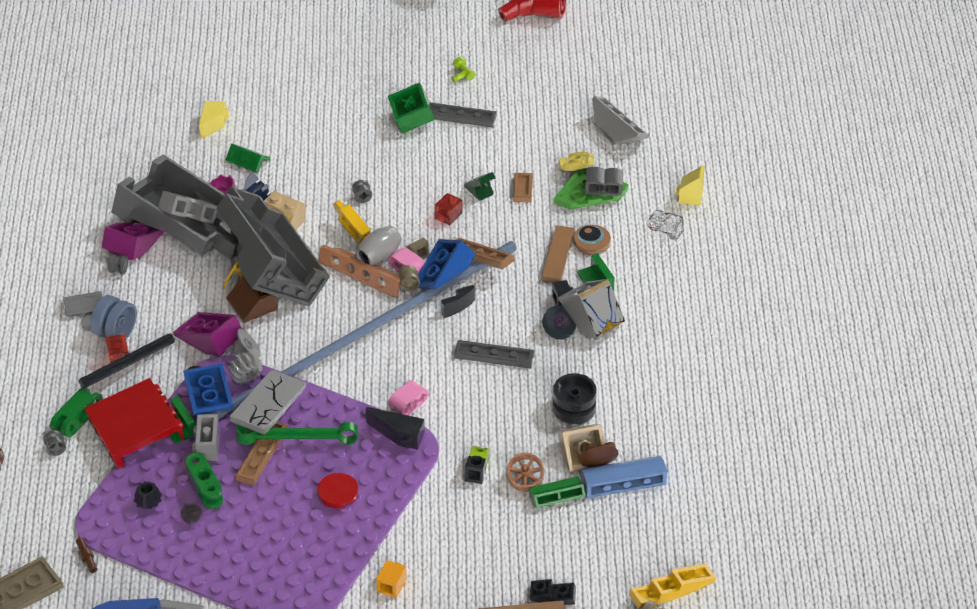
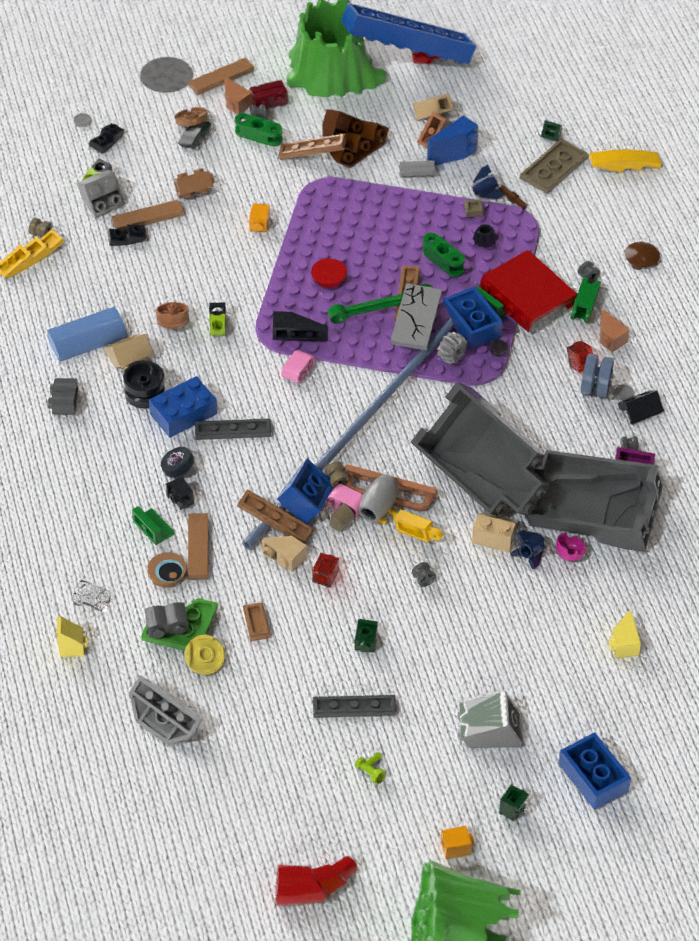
camera: 165 degrees right, 5 degrees up
(69, 371) = (612, 332): none -> nougat slope
(112, 566) = (486, 184): none -> dark blue brick
(126, 361) = (561, 352): black axle -> none
(140, 541) = (473, 208): none -> dark tan tile
(187, 206) = (575, 499): light grey arch -> none
(191, 513) = (443, 231): clear smoke plate -> none
(207, 436) = (454, 278): light grey brick -> none
(209, 332) = (509, 392): magenta slope -> none
(245, 157) = (563, 599): green panel -> none
(246, 343) = (464, 376): light grey piece -> none
(289, 32) = (594, 770): none -> blue brick
(356, 76) = (490, 722): none -> light grey slope
(363, 22) = (513, 802): none -> dark green brick
(411, 107) = (408, 680): green brick -> none
(415, 13) = (456, 842): none -> light orange brick
(432, 150) = (366, 635): none -> dark green brick
(453, 305) = (279, 470): black slope -> none
(480, 230) = (285, 551): none -> tan slope
(481, 186) = (301, 605): dark green slope -> none
(536, 373) = (182, 406): none -> blue brick
(556, 492) = (140, 311): green piece -> none
(593, 308) = (148, 469): light grey slope -> none
(598, 455) = (110, 329): reddish brown dish -> none
(660, 409) = (64, 396): none -> dark grey brick

